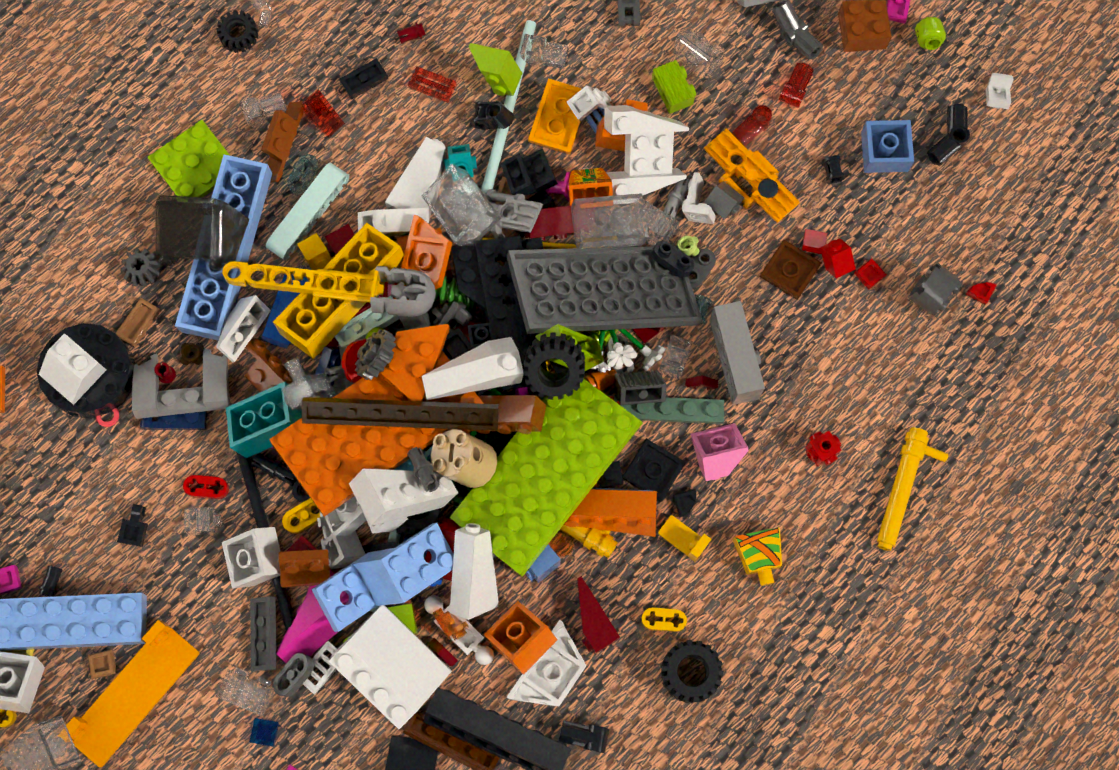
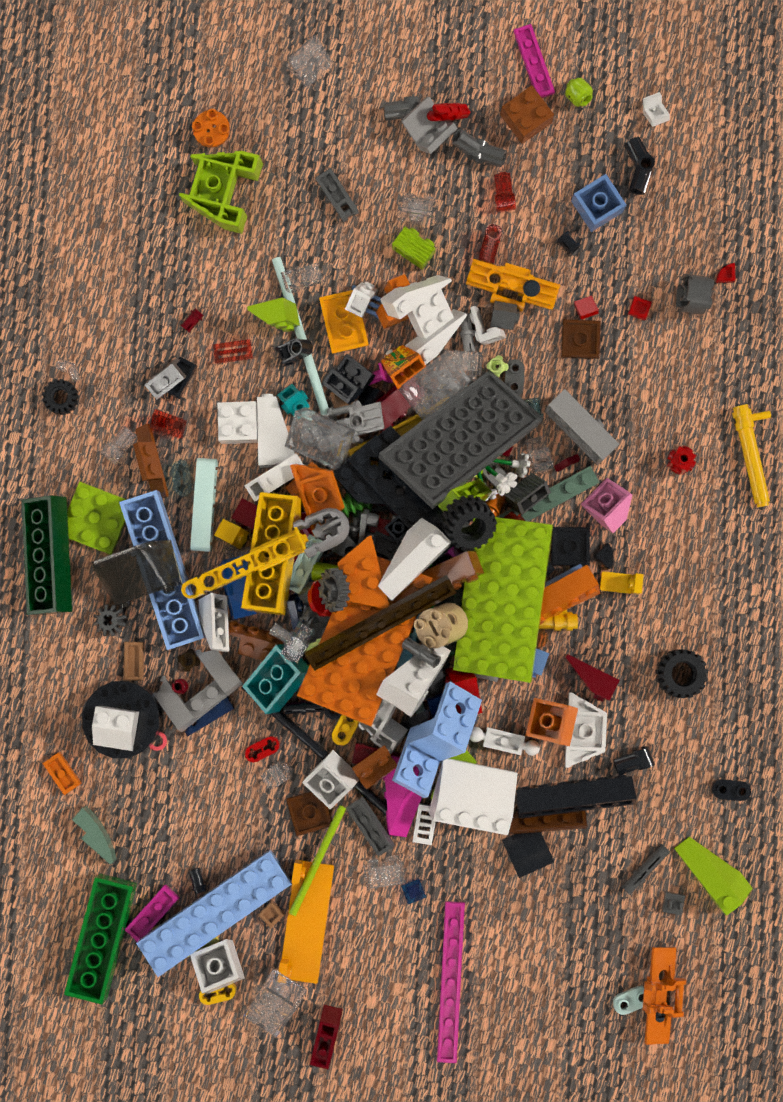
camera: 25 degrees left, 10 degrees up
(121, 168) = (46, 555): none -> dark green brick
(133, 530) = (231, 811): black plate -> none
(185, 635) = (317, 860): none -> lime piece
(209, 582) = (308, 813): none -> reddish brown tile
(293, 673) = (410, 840): dark grey plate -> none
(347, 69) = (165, 379): none -> flat silver panel
(390, 150) = (237, 422): none -> white brick
(442, 652) = (501, 763): dark red tile -> none
(446, 621) = (493, 742): clear orange bracket -> none
(473, 573) = (494, 699): white slope -> none
(664, 613) = (637, 644): yellow beam -> none
(672, 259) = (495, 383): black plate -> none
(760, 553) = (680, 562): torso -> none
(838, 258) = (611, 311): red brick -> none

